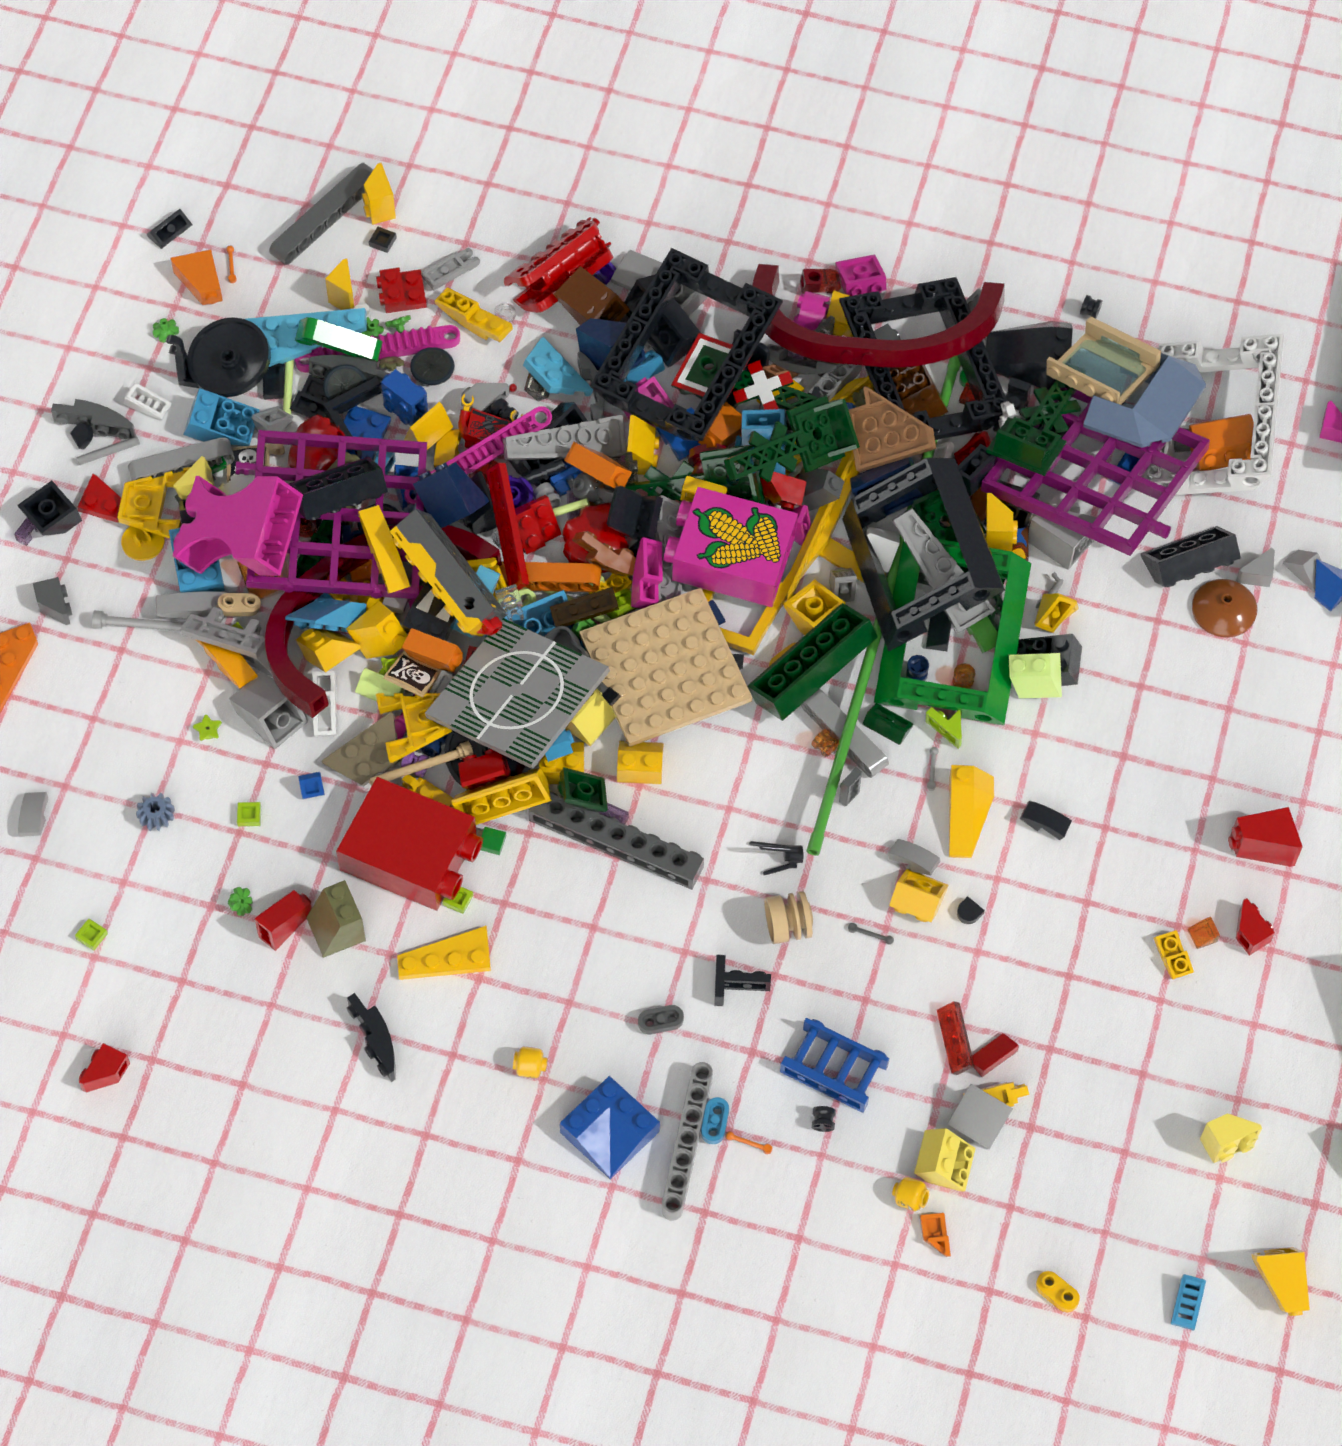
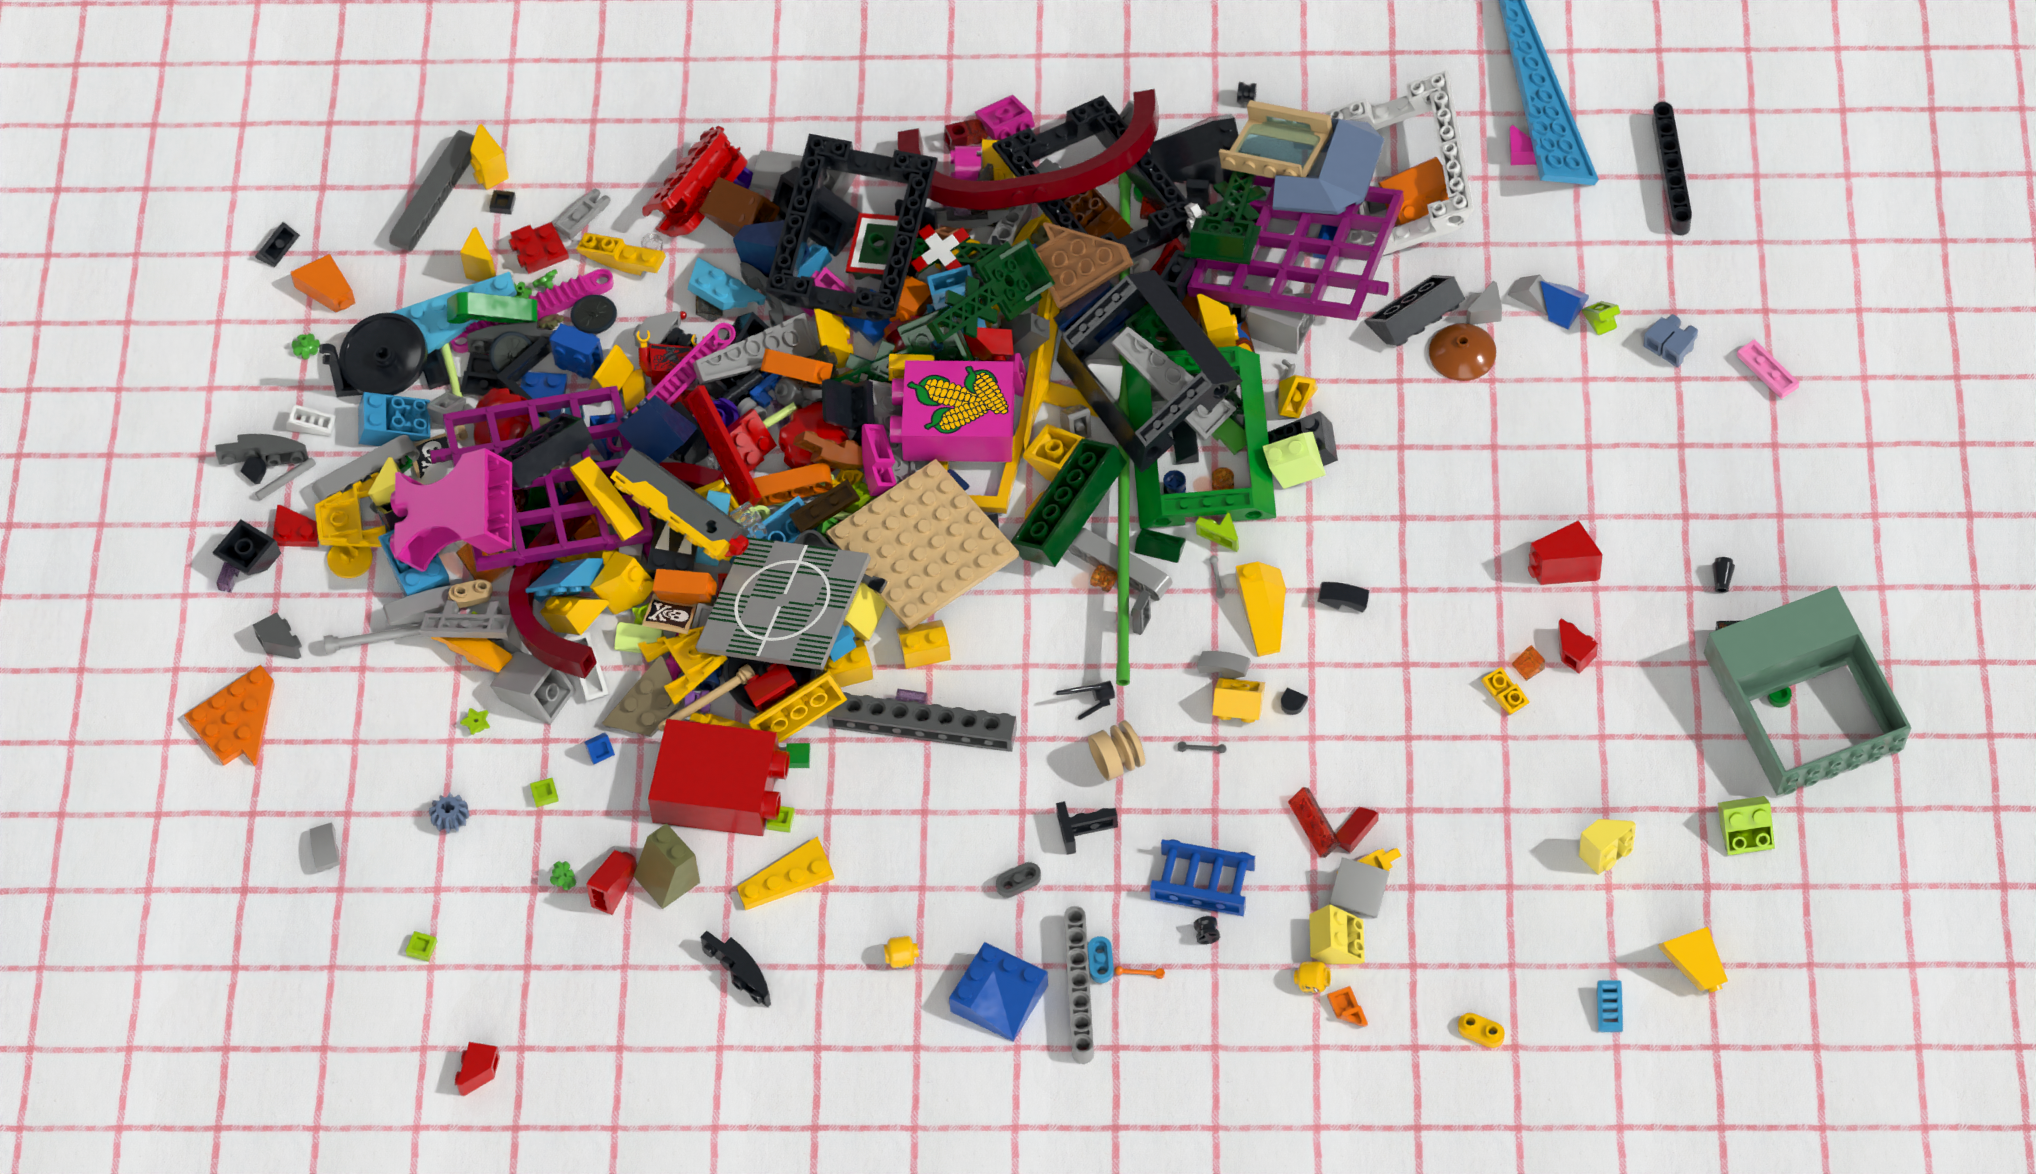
camera: 10 degrees left, 5 degrees down
(232, 278) = (358, 277): orange hinge -> none
(583, 790) = (876, 681): dark green slope -> none

